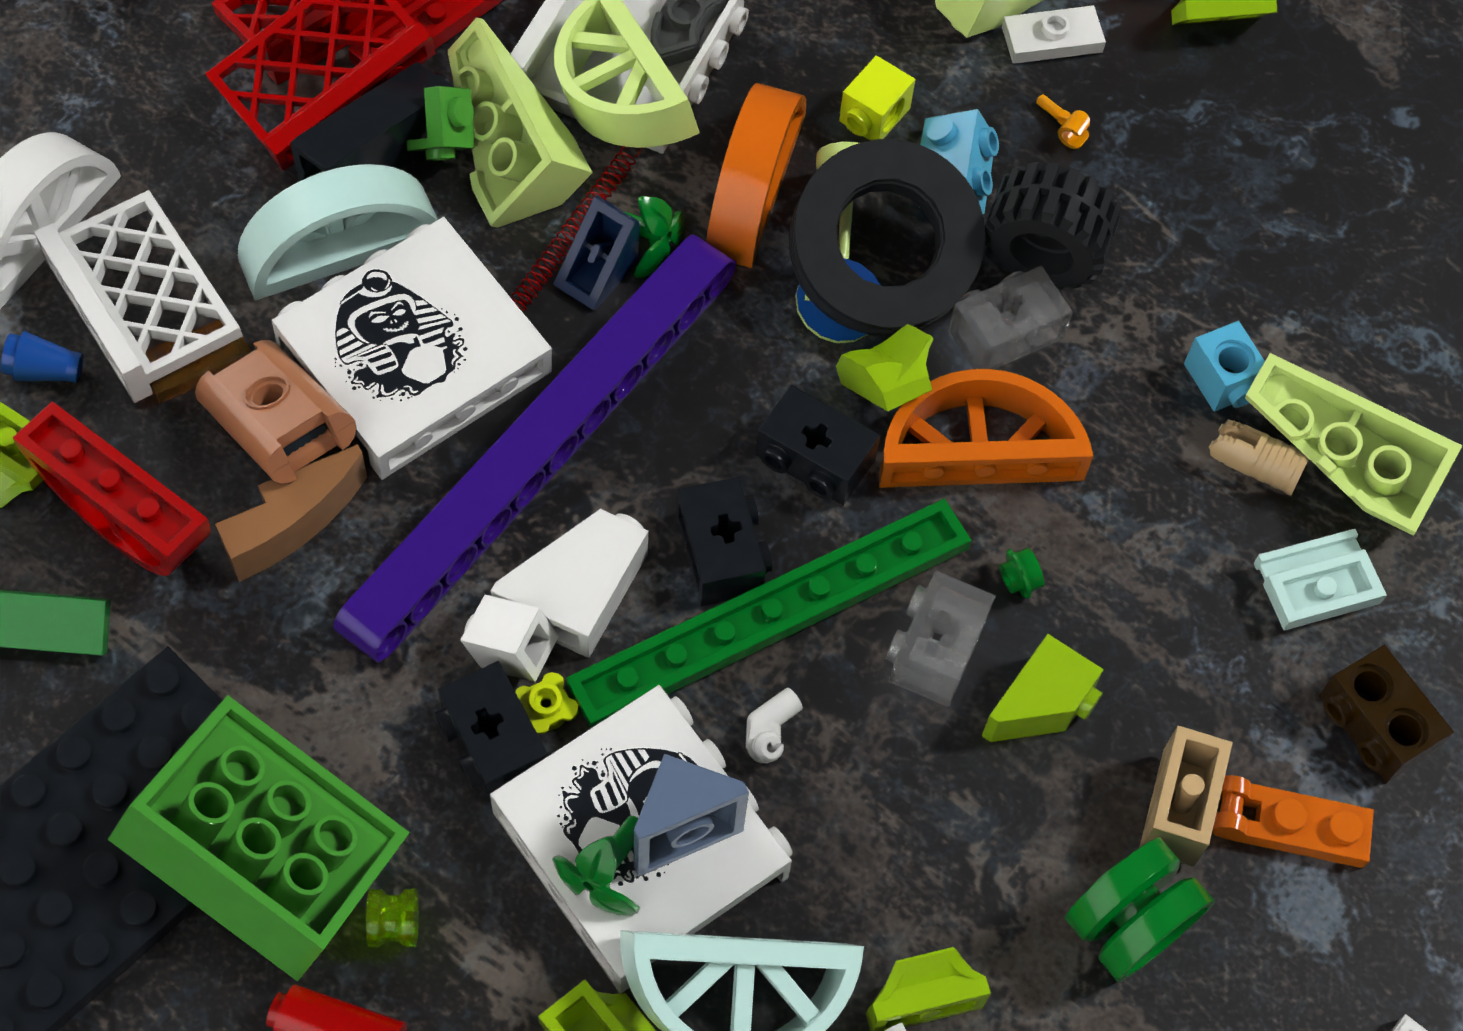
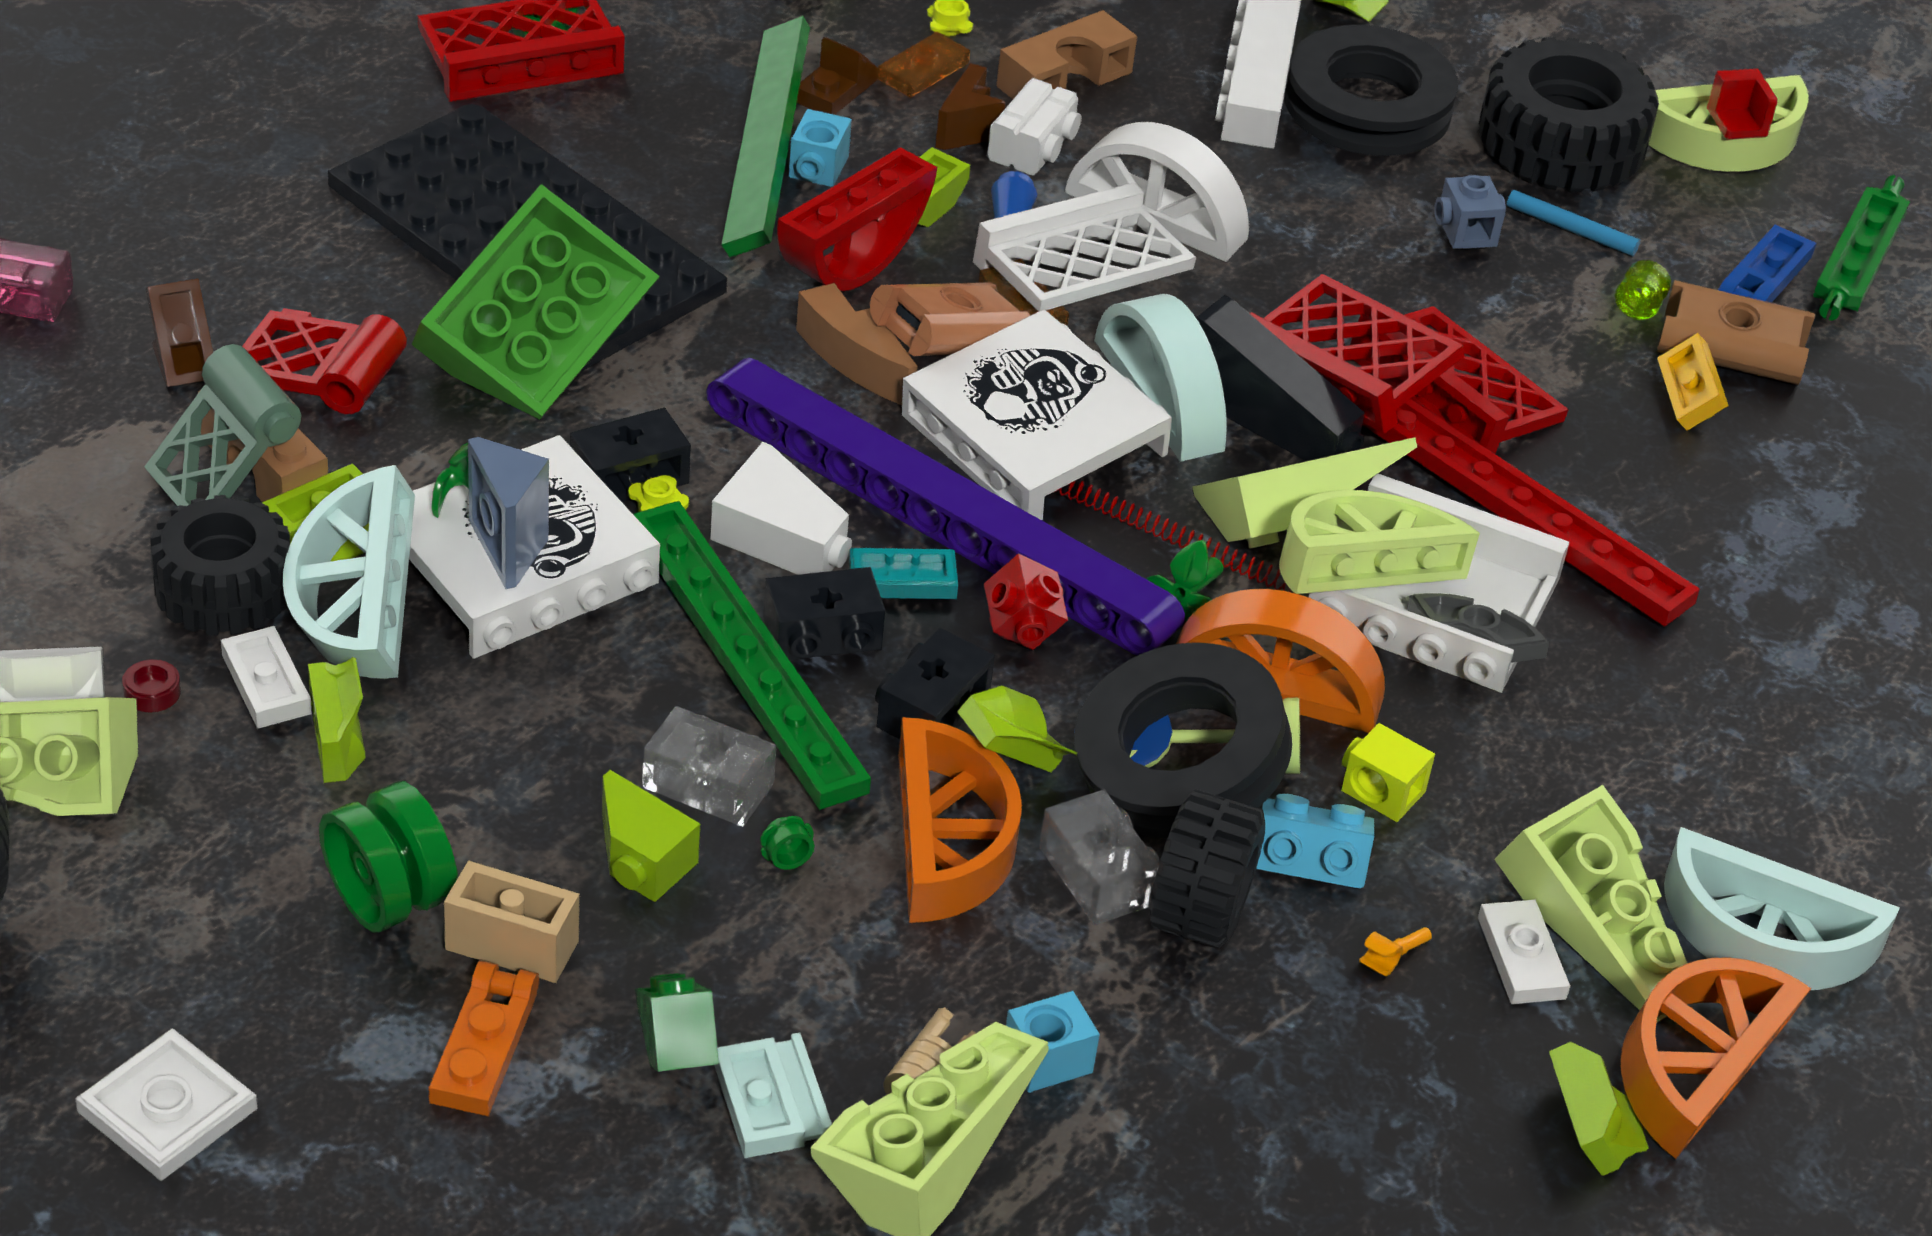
camera: 90 degrees right, 20 degrees down
(392, 918) = (455, 407): clear neon green wheel -> none
(447, 123) = (1294, 432): bright green bracket -> none
(510, 634) = (714, 459): white brick -> none
(600, 254) = (1154, 543): dark blue slope -> none
(648, 473) = (910, 571): none -> teal plate
(702, 361) = (1025, 602): none -> red brick
(765, 723) = (625, 642): white arm -> none
(1261, 654) = (677, 1022): none -> slope
(1395, 707) = (598, 1123): dark brown brick -> none

